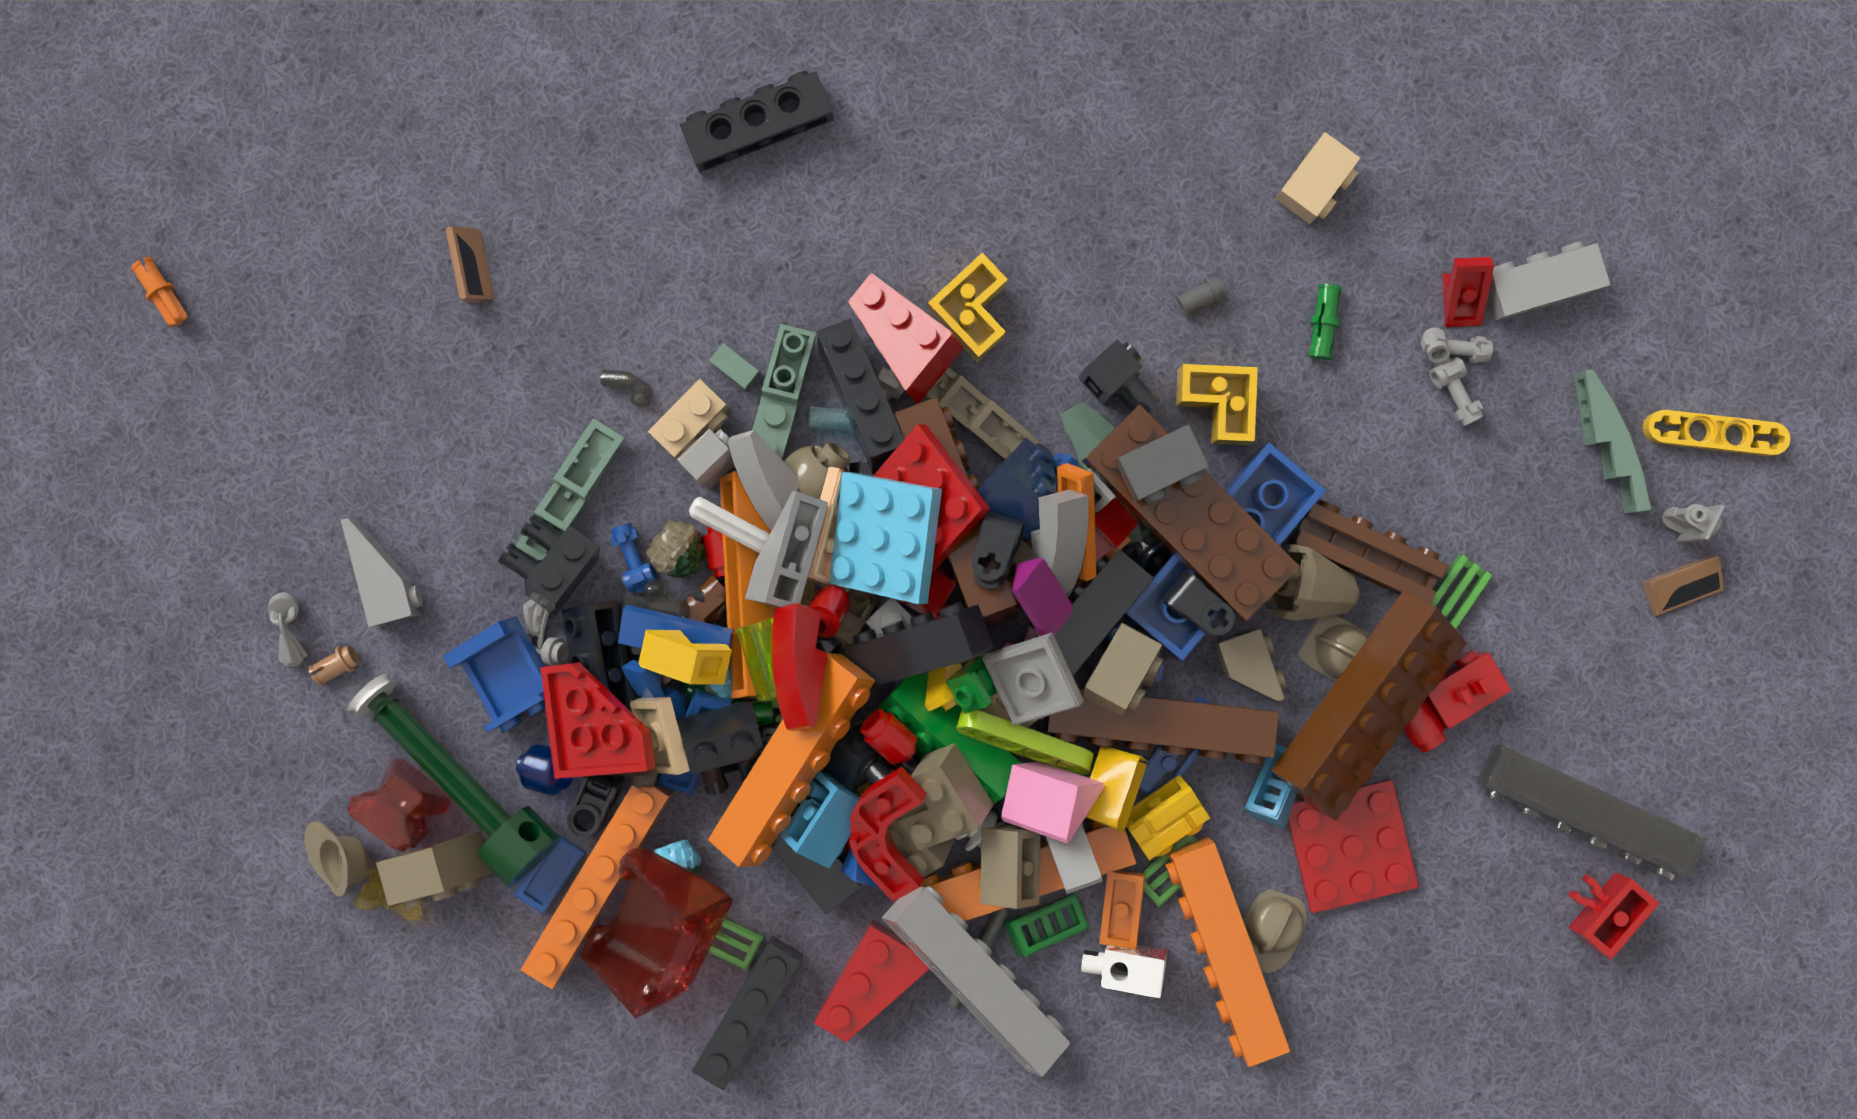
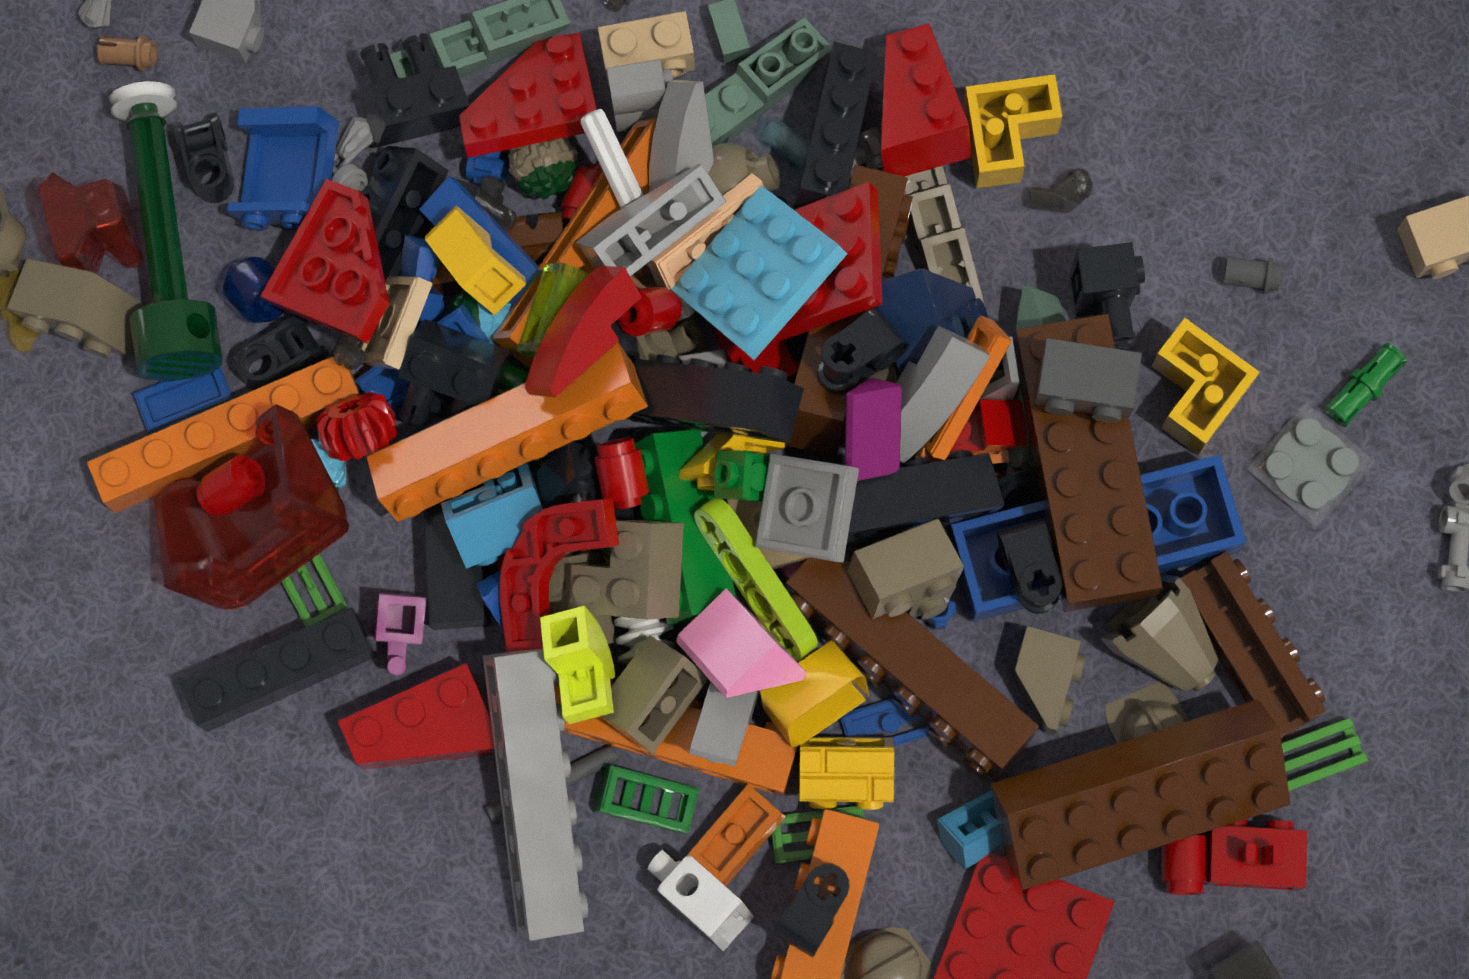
camera: 45 degrees right, 10 degrees down
(437, 696) = (205, 151): none -> black piece
(630, 919) = (231, 486): none -> red brick
(640, 511) = (532, 100): none -> red plate
(685, 823) = (356, 426): none -> red gear
(806, 929) = (398, 622): none -> magenta brick
(950, 876) = (583, 662): none -> neon yellow brick
(1041, 326) = (1066, 196): none -> clear smoke arm
(1212, 935) = (808, 914): none -> black piece
(1325, 402) = (1309, 466): none -> light grey piece

